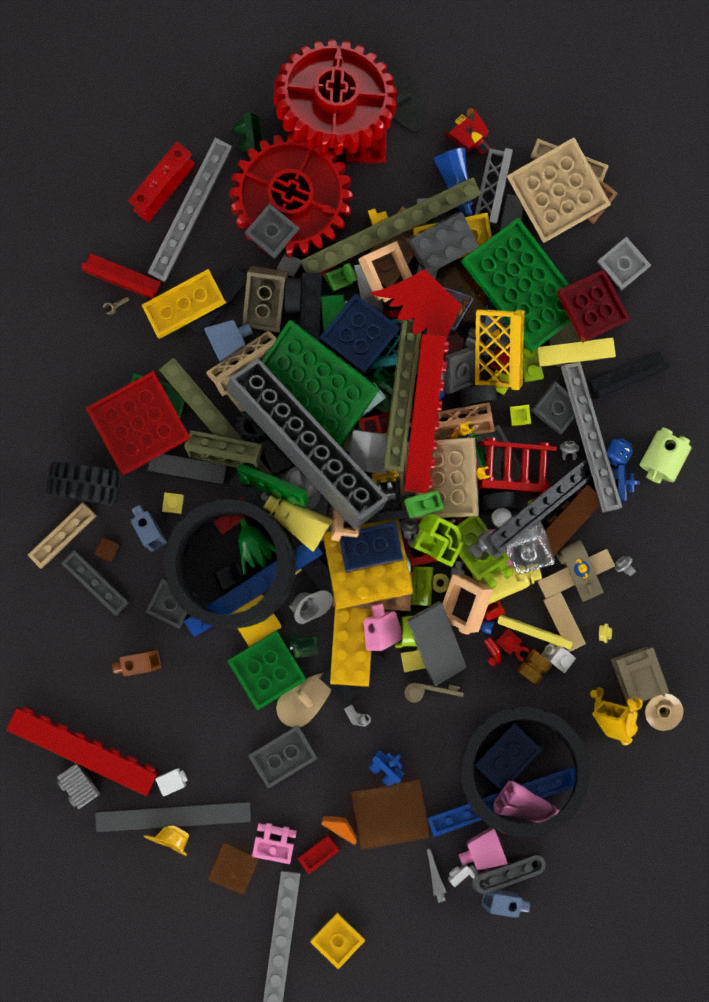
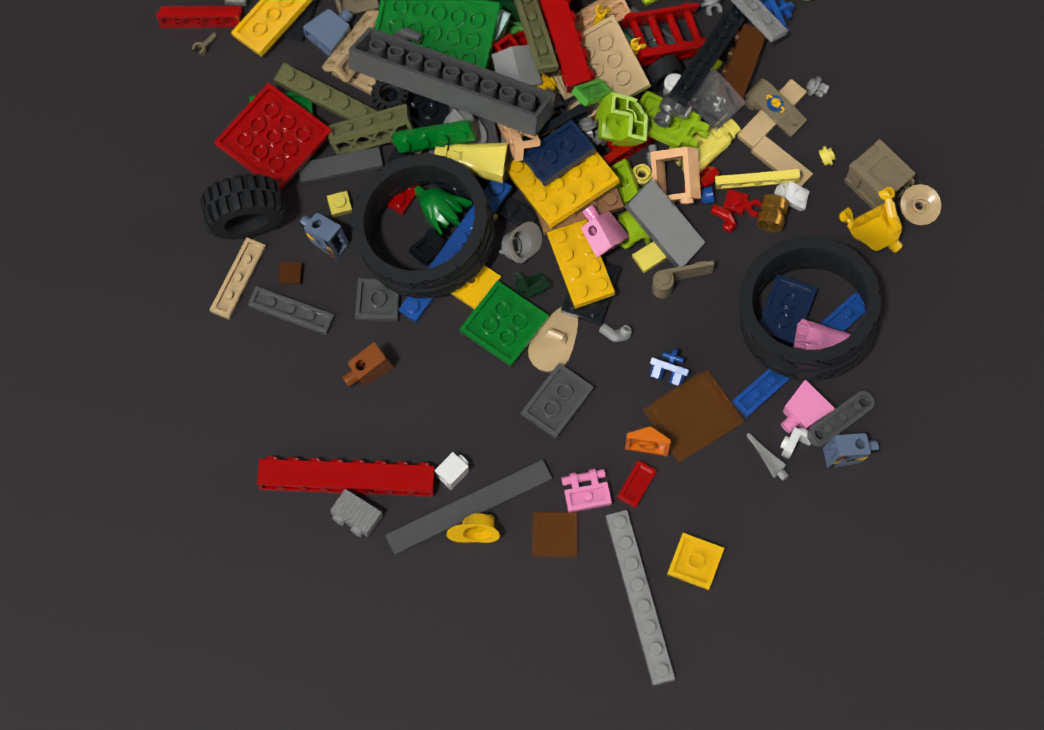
camera: 20 degrees left, 15 degrees down
(288, 377) = (409, 34): none -> dark grey arm

